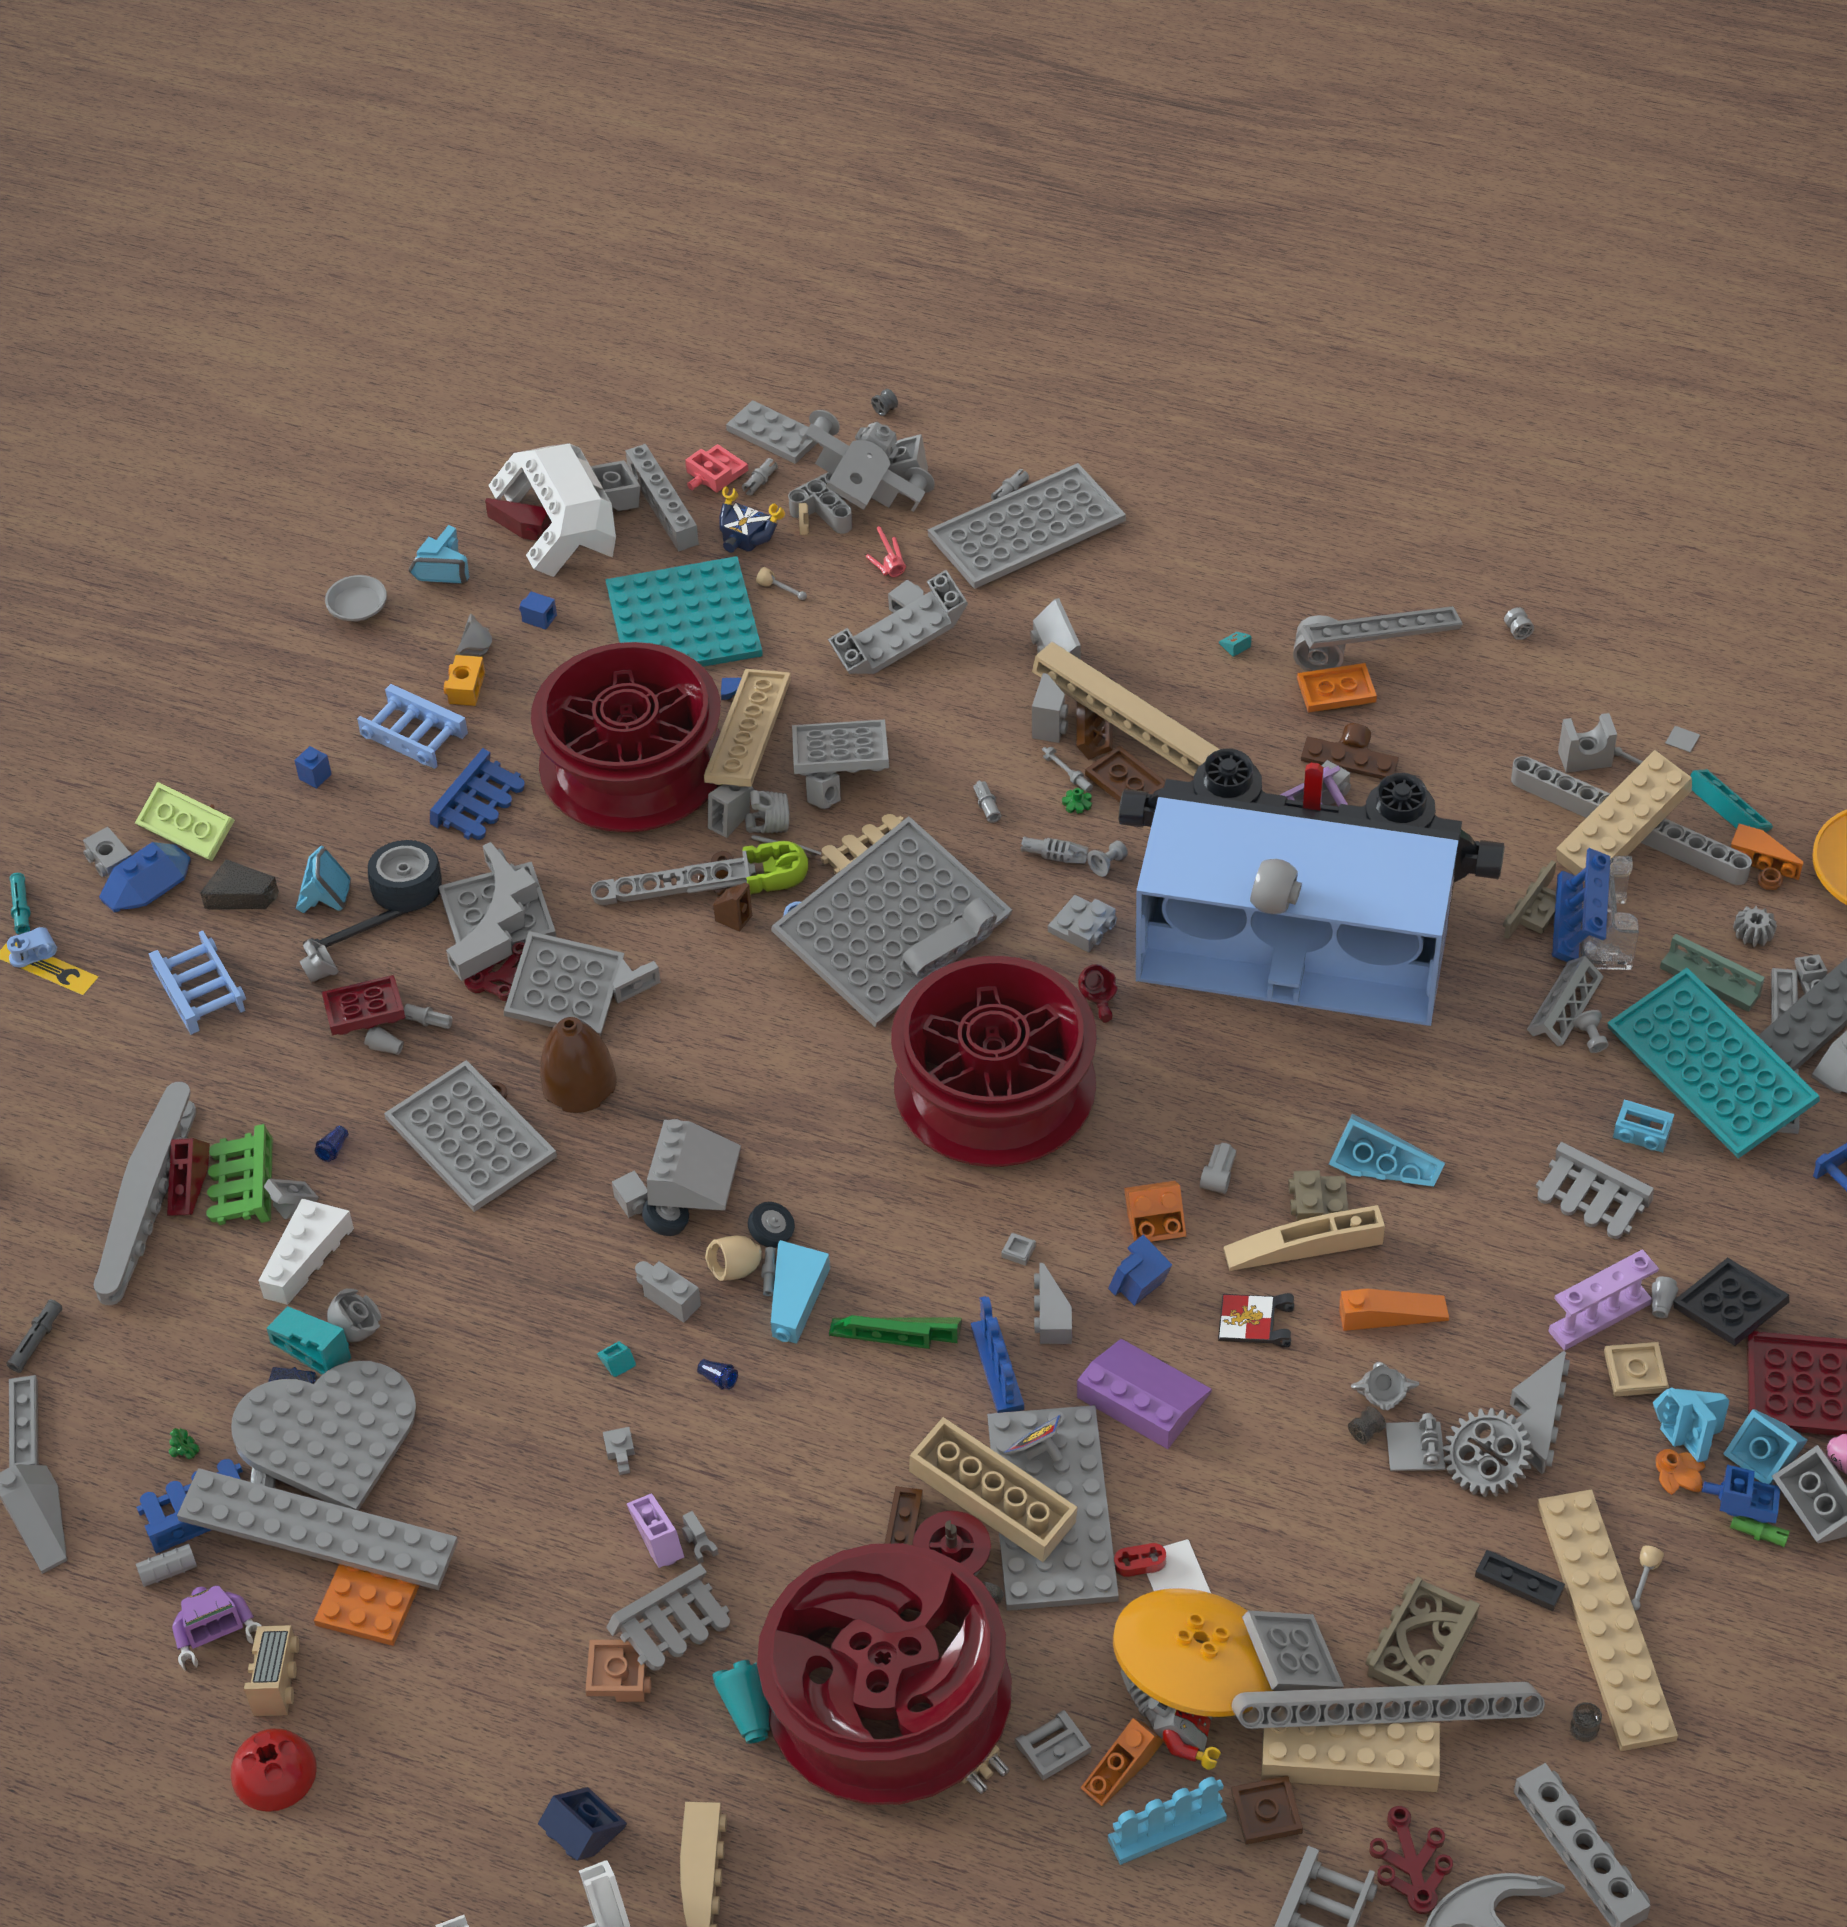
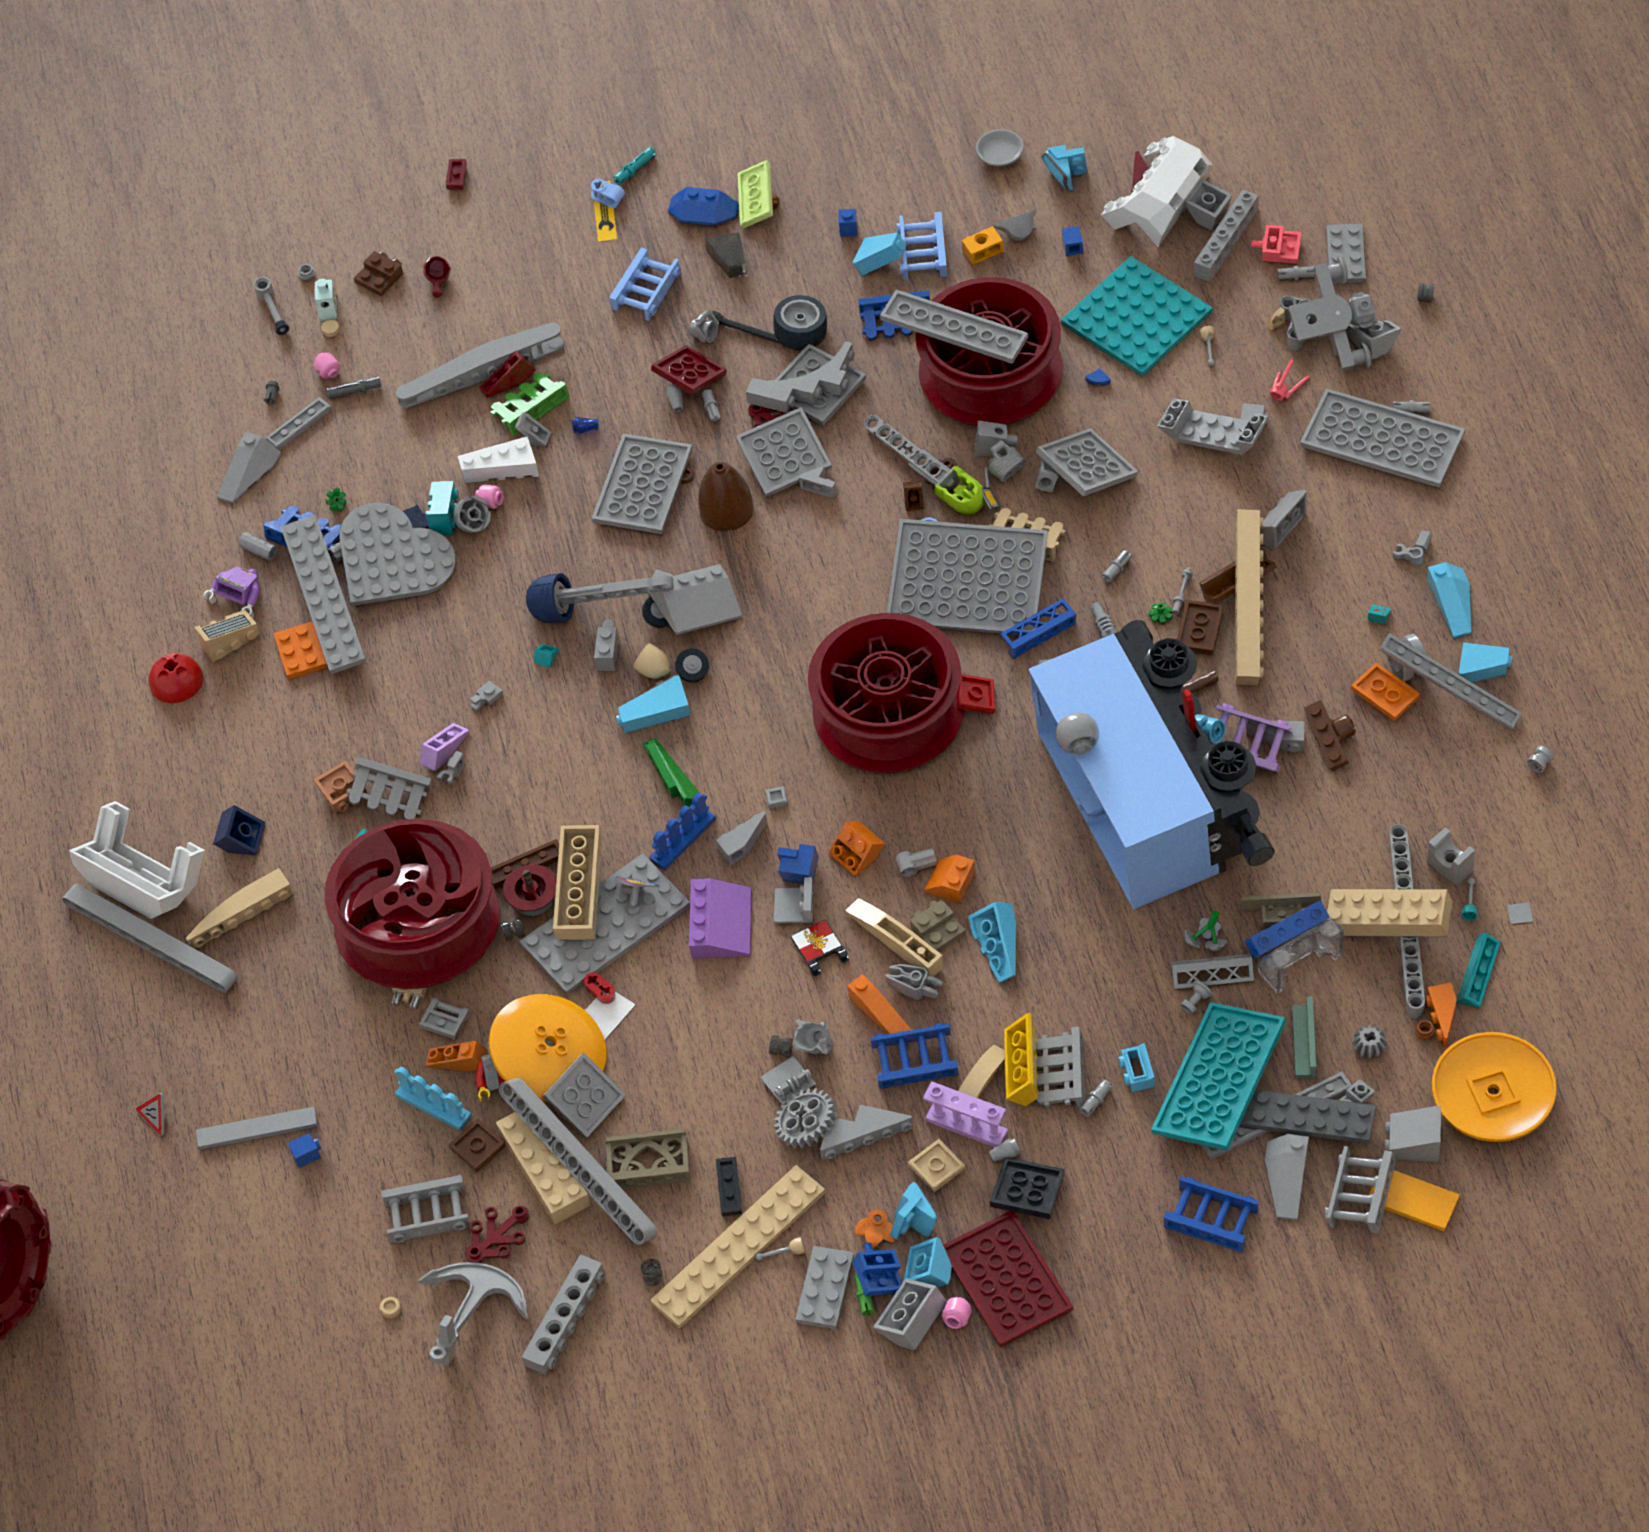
camera: 60 degrees right, 5 degrees up
(105, 851) = (702, 174): light grey brick -> none
(323, 882) = (763, 289): medium azure piece -> none
(338, 1281) = (490, 494): none -> bright pink head
(386, 759) = (878, 251): none -> medium azure slope
(550, 1304) = (553, 598): none -> piece
(598, 725) = (954, 326): none -> light grey plate
(720, 1374) = (570, 709): clear blue cone -> none
(744, 526) = (1240, 292): torso -> none
(747, 728) = (1060, 405): tan plate -> none
(953, 939) = (973, 616): light grey beam -> none
(1017, 904) = (1040, 634): none -> blue fence
(1049, 711) = (1214, 548): light grey slope -> none
(1098, 986) = (1005, 713): dark red hair -> none
(1184, 1305) = (794, 904): none -> light grey bracket
(1189, 577) = (1414, 554): none -> light grey bar
(1264, 582) = (1452, 595): none -> medium azure wedge
(1267, 1150) = (951, 878): none -> orange slope
(1365, 598) = (1483, 661): none -> medium azure slope
(1380, 1256) = (912, 981): none -> light grey hinge
(1495, 1327) = (926, 1071): none -> blue fence
(1512, 975) = (1207, 928): none -> light grey plant
(1547, 1260) = (983, 1071): none -> tan slope
(1568, 1210) = (1021, 1061): none -> yellow slope
(1654, 1180) = (1095, 1098): none -> light grey pin
(1722, 1563) = (824, 1287): none -> light grey plate

